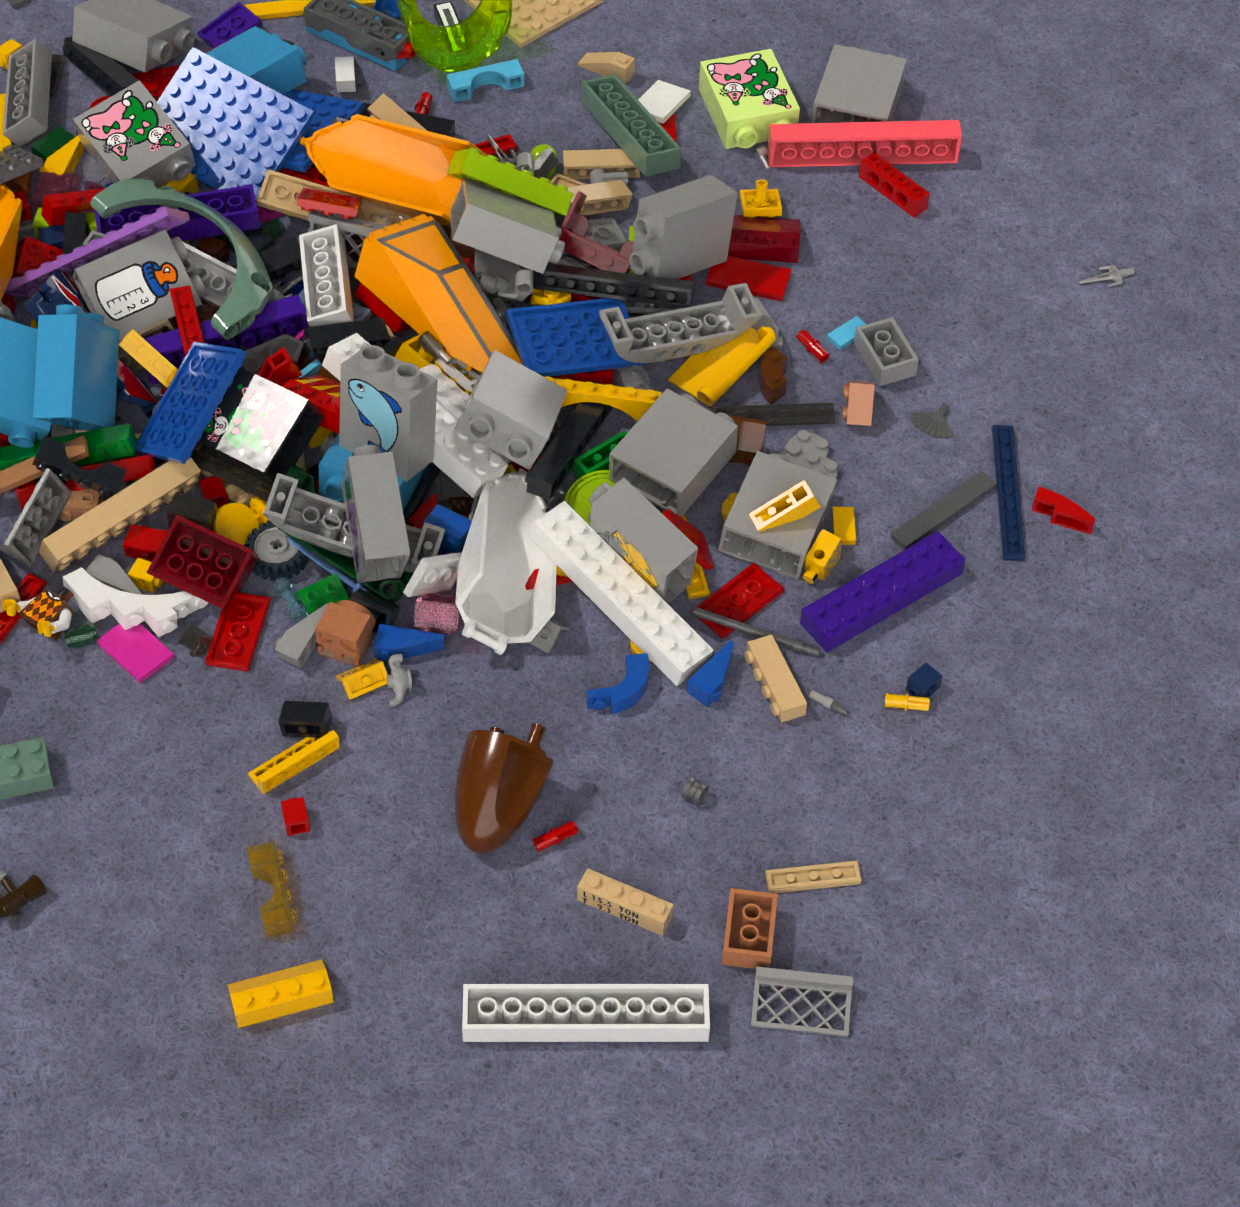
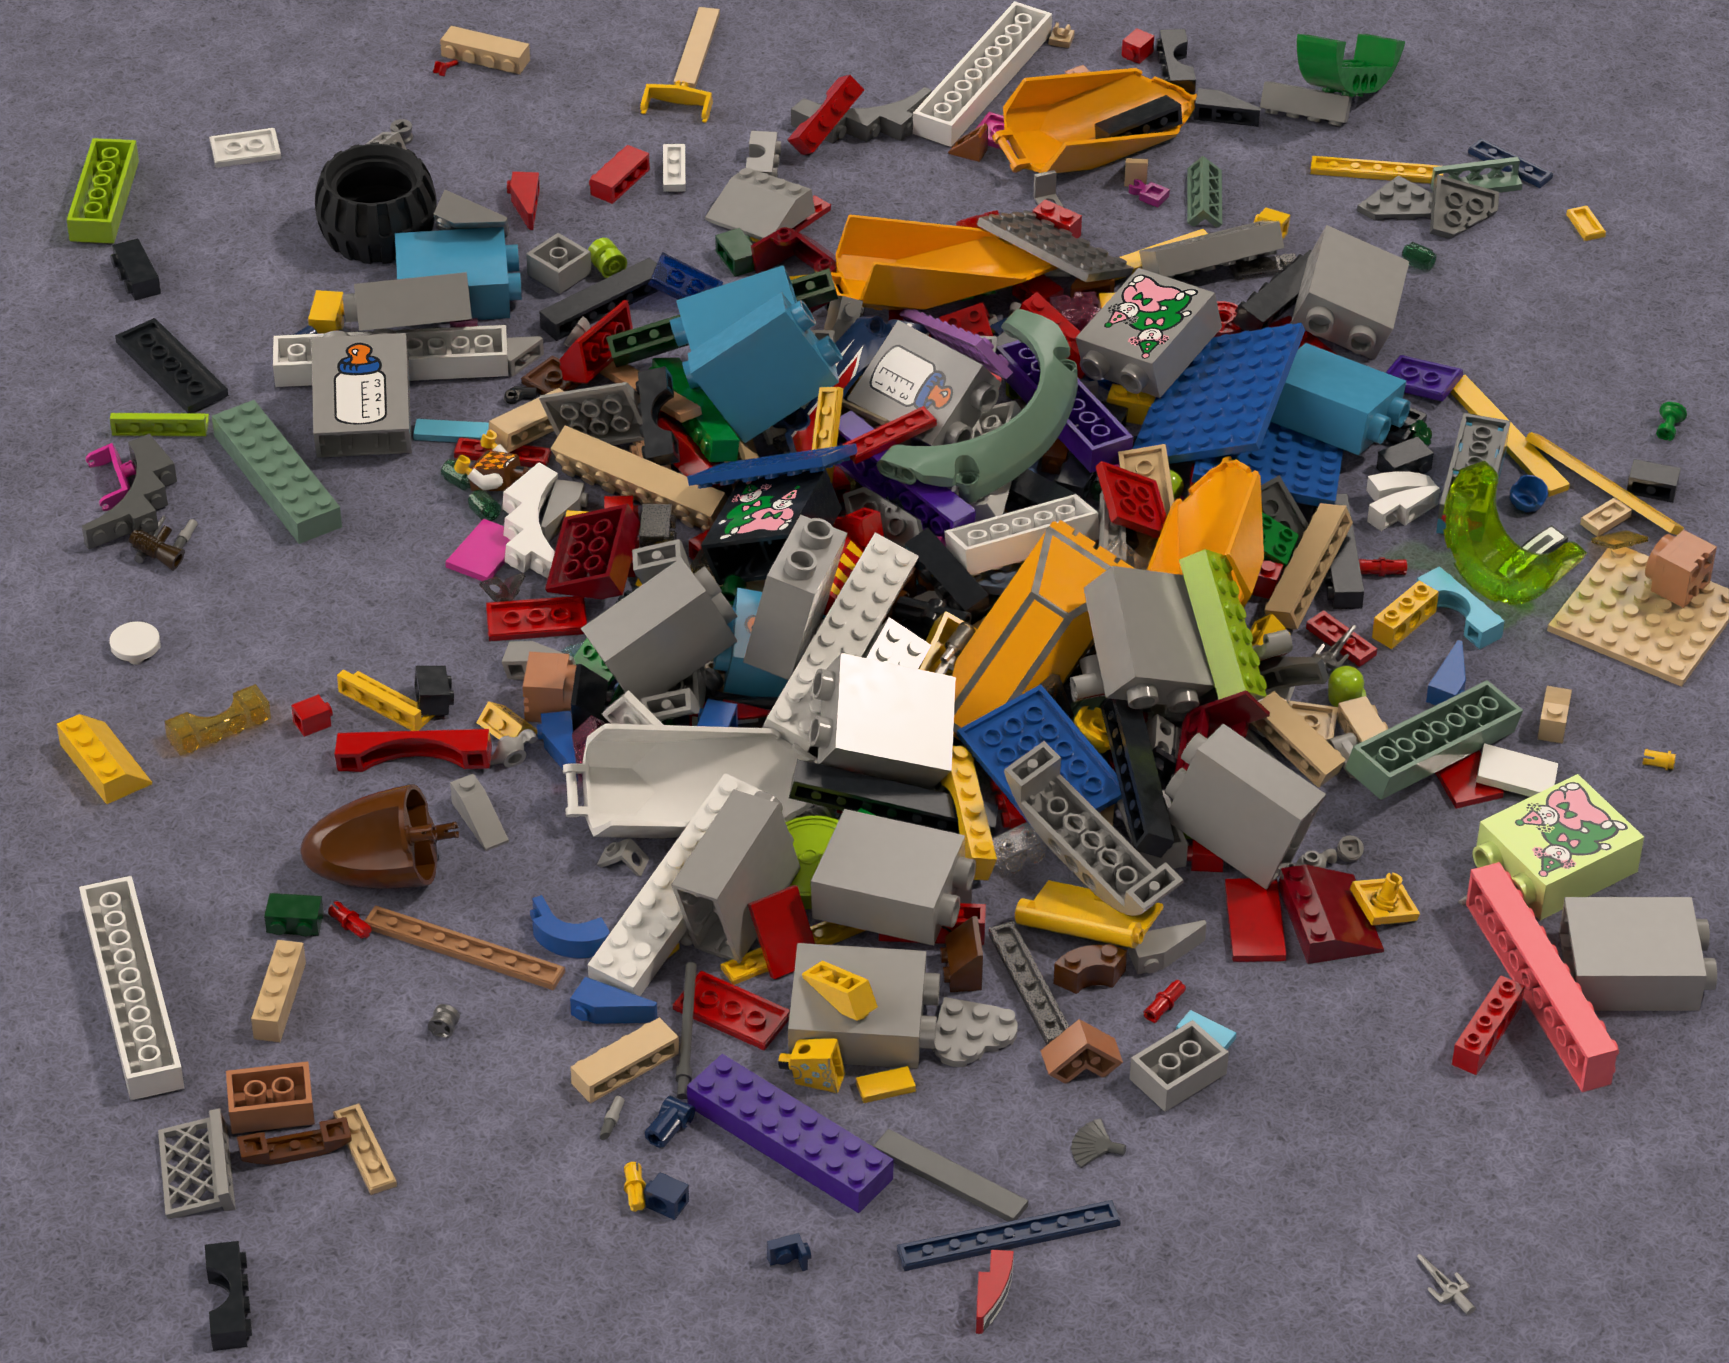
camera: 75 degrees right, 10 degrees down
(30, 645) = (450, 475): none -> clear green brick
(133, 940) = (135, 642): none -> white tile
(318, 62) = (1406, 457): none -> brick
(367, 79) = (1402, 506): none -> white slope
(390, 708) = (366, 749): none -> red arch
(462, 718) = (477, 811): none -> light grey slope
(482, 109) = (1405, 614): none -> yellow brick
(536, 875) = (294, 914): none -> dark green brick
(555, 105) = (1449, 678): none -> slope
(609, 764) = (465, 947): none -> medium nougat tile
(676, 27) = (1661, 759): none -> yellow pin
(798, 921) = (297, 1146): none -> reddish brown slope
(843, 660) = (672, 1116): none -> dark blue piece
(982, 1004) = (228, 1322): none -> black arch
(996, 619) = (788, 1248): none -> dark blue bracket

